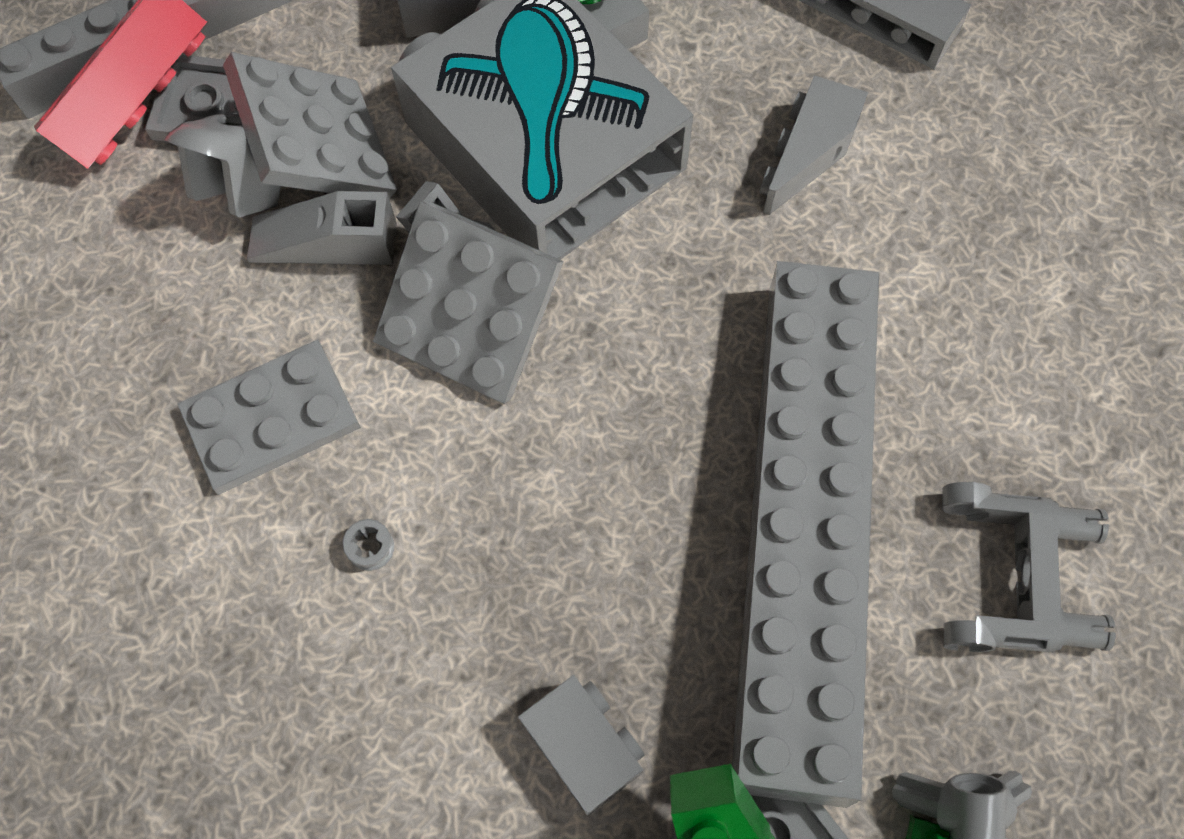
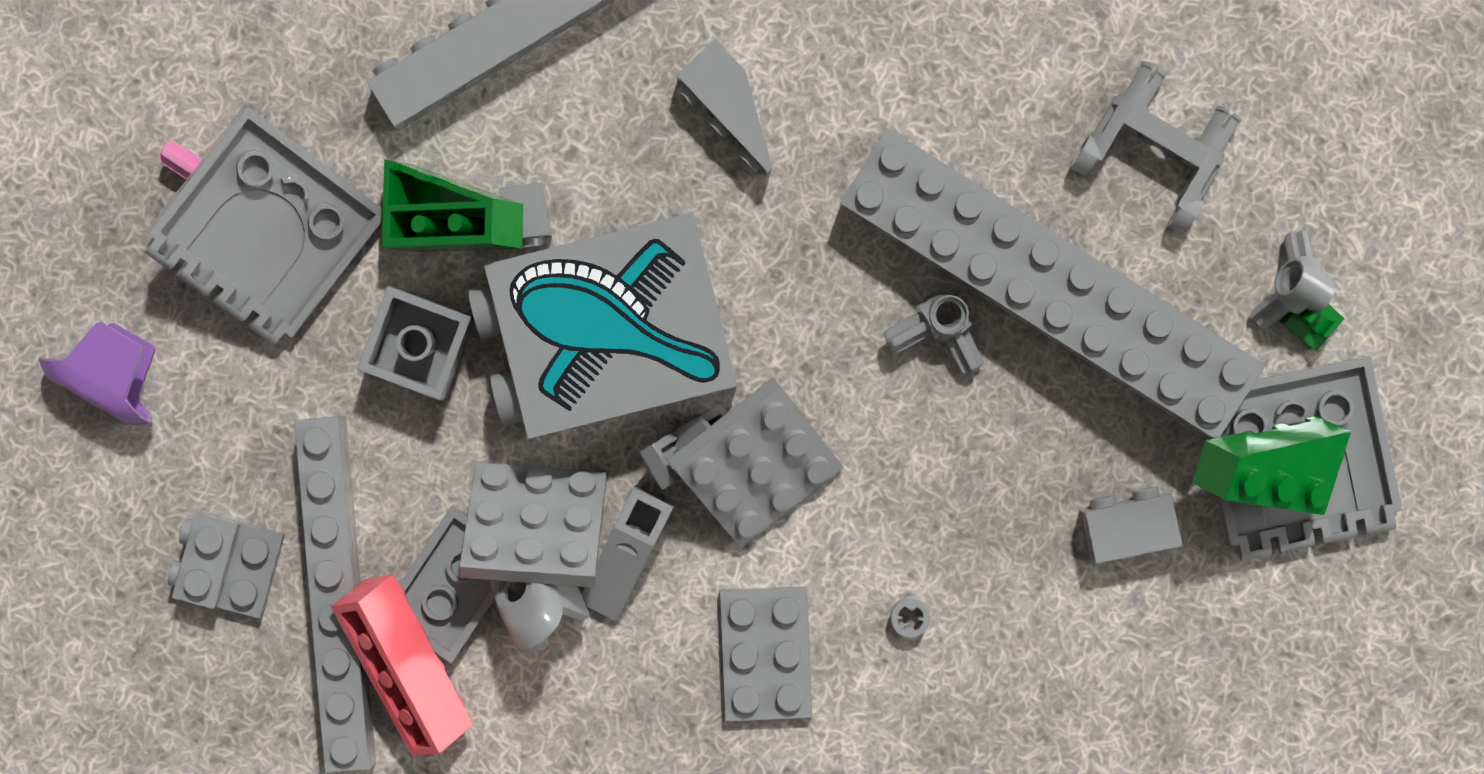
camera: 60 degrees left, 20 degrees up
(702, 447) = (925, 324): none -> light grey axle

